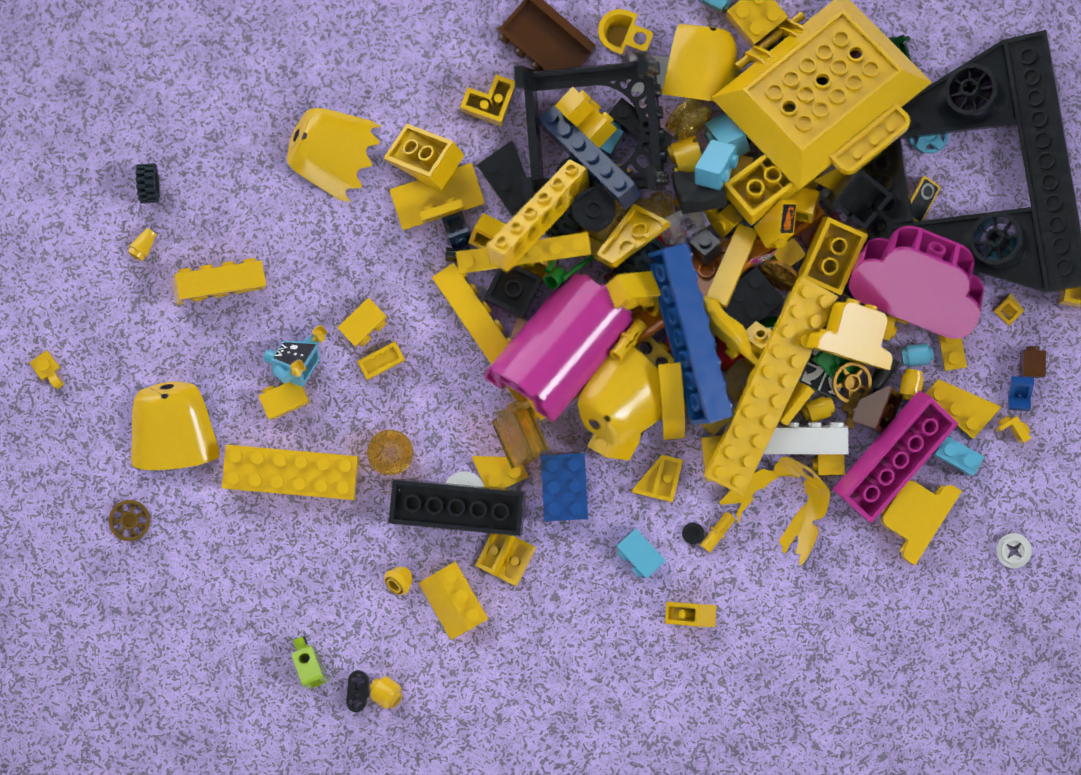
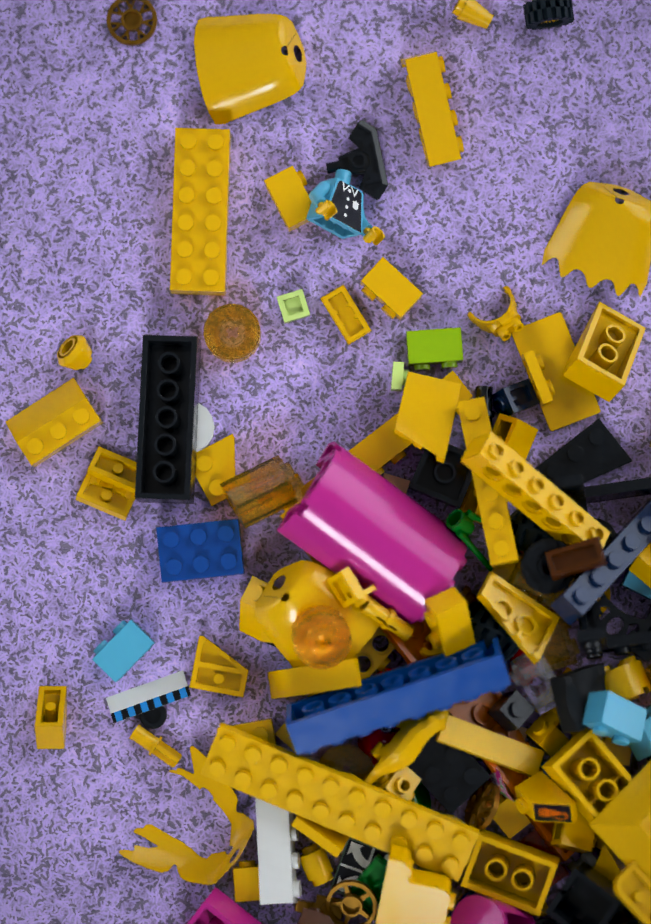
camera: 85 degrees right, 0 degrees up
(257, 338) = (364, 160): none -> black piece
(371, 402) = (293, 306): none -> yellowish green plate
(398, 236) = (504, 325): none -> yellow helmet
(412, 291) = (434, 347): none -> lime brick
(433, 320) = (399, 376): none -> yellowish green plate
(465, 298) = (428, 413): none -> yellow slope
(589, 186) = (575, 558): none -> reddish brown tile
(603, 368) = (348, 590): none -> yellow bracket
(651, 389) = (335, 642): none -> clear yellow wheel
(678, 536) = (148, 696): none -> white sticker

